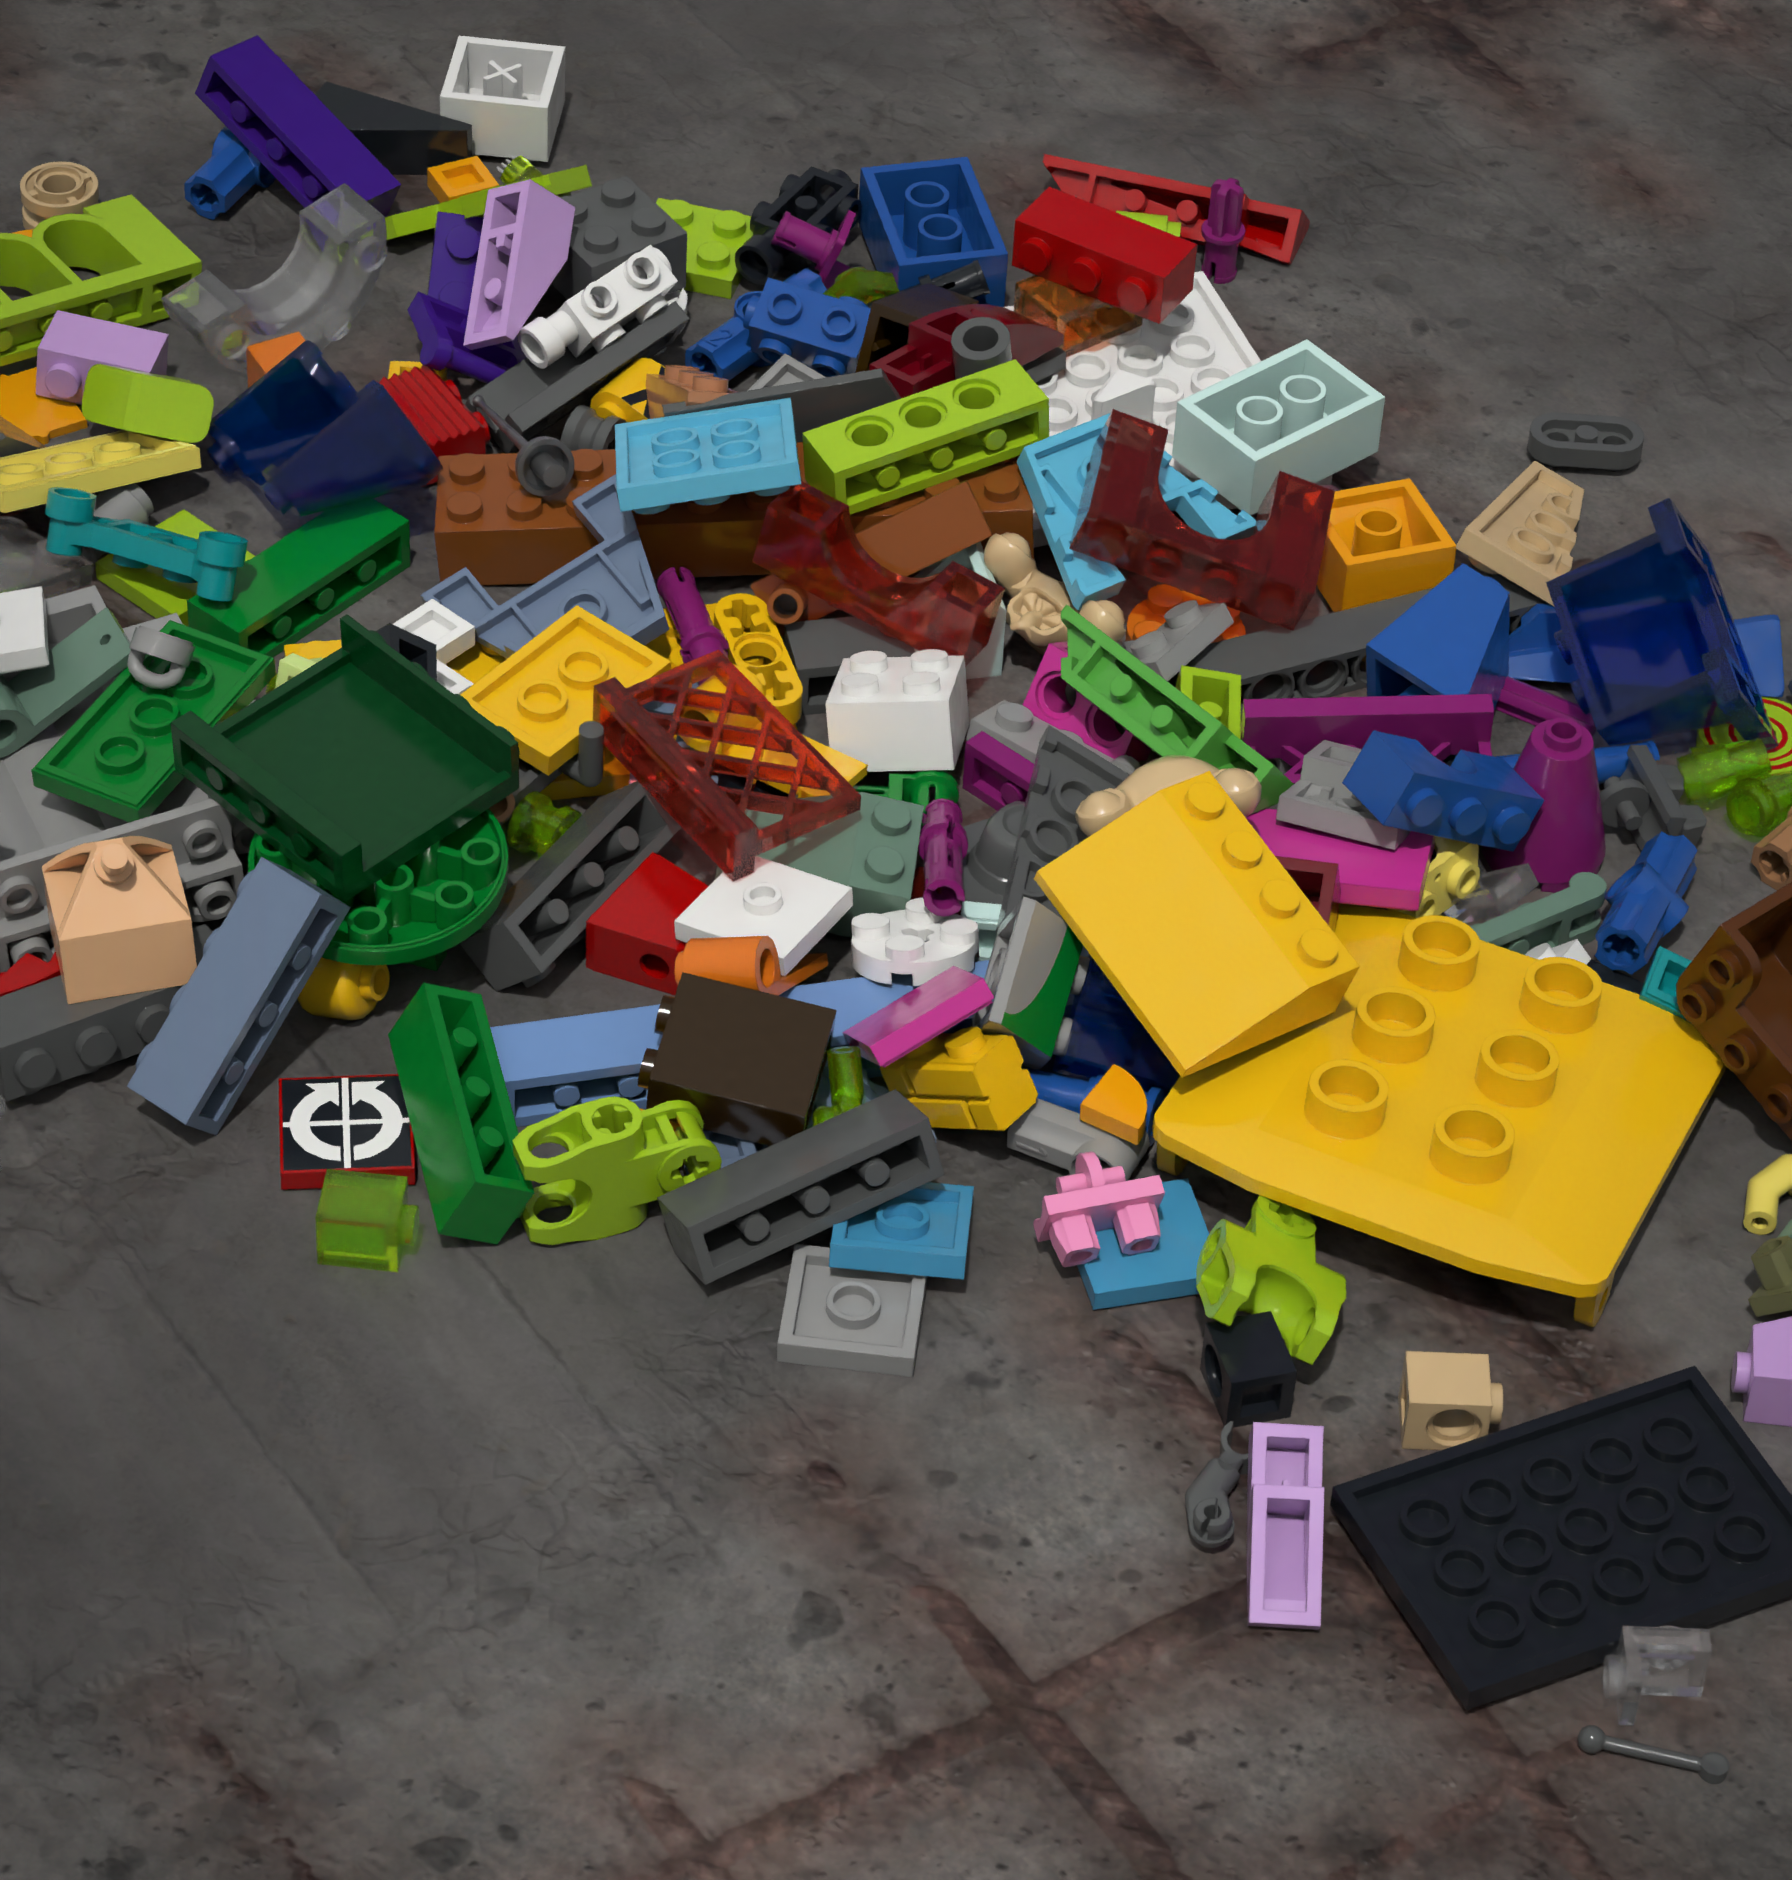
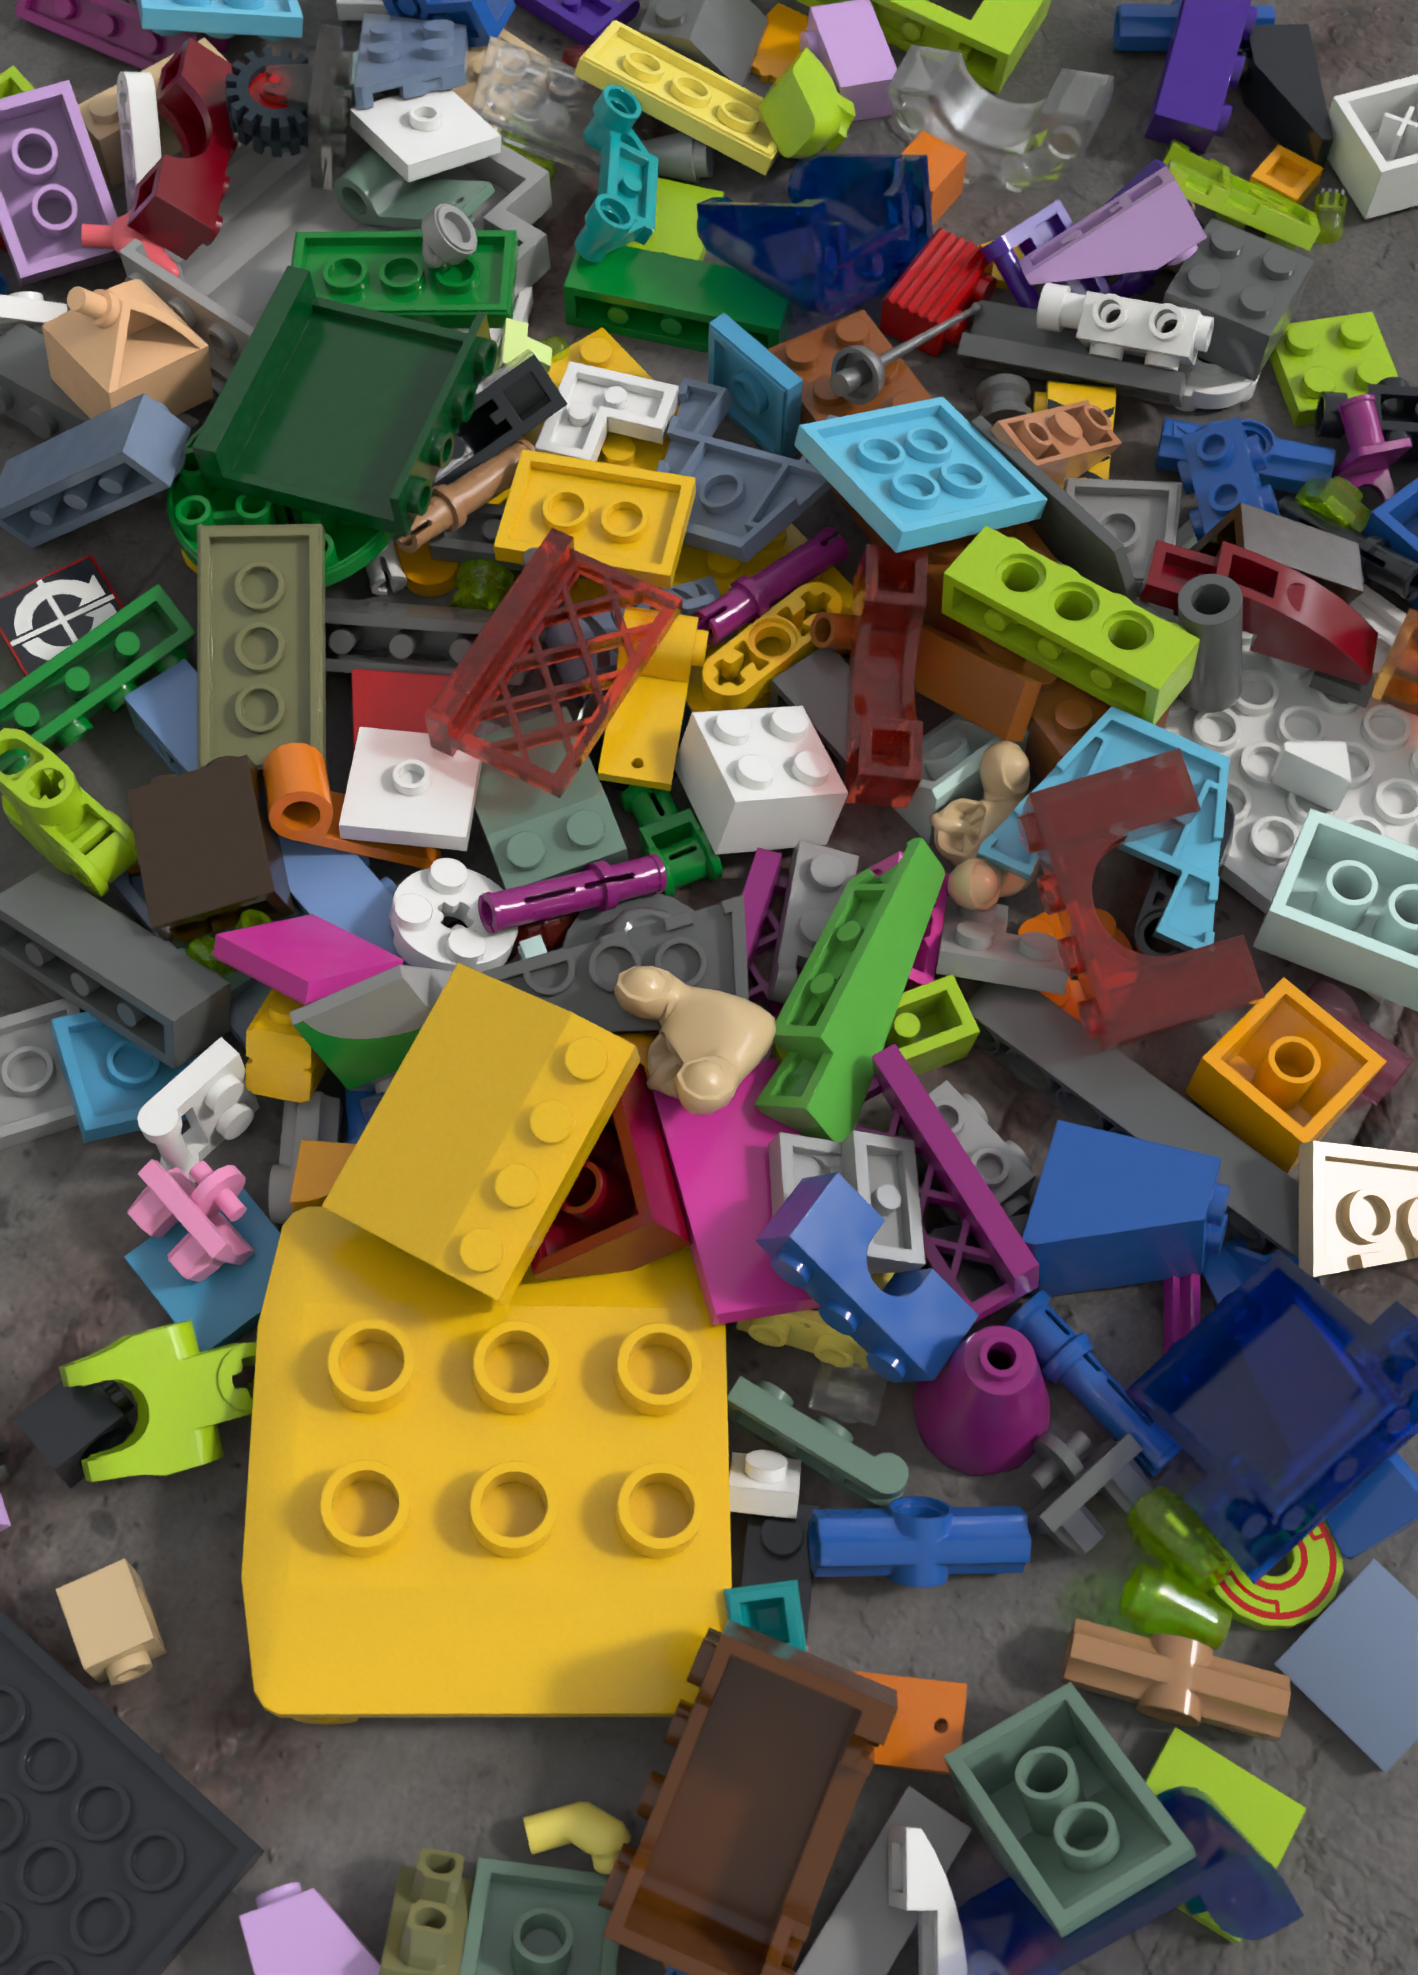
camera: 65 degrees right, 20 degrees up
(482, 538) = (761, 387): none -> dark azure tile
(552, 936) = (260, 640): none -> olive tile
(1002, 1172) = (214, 1103): none -> white plate

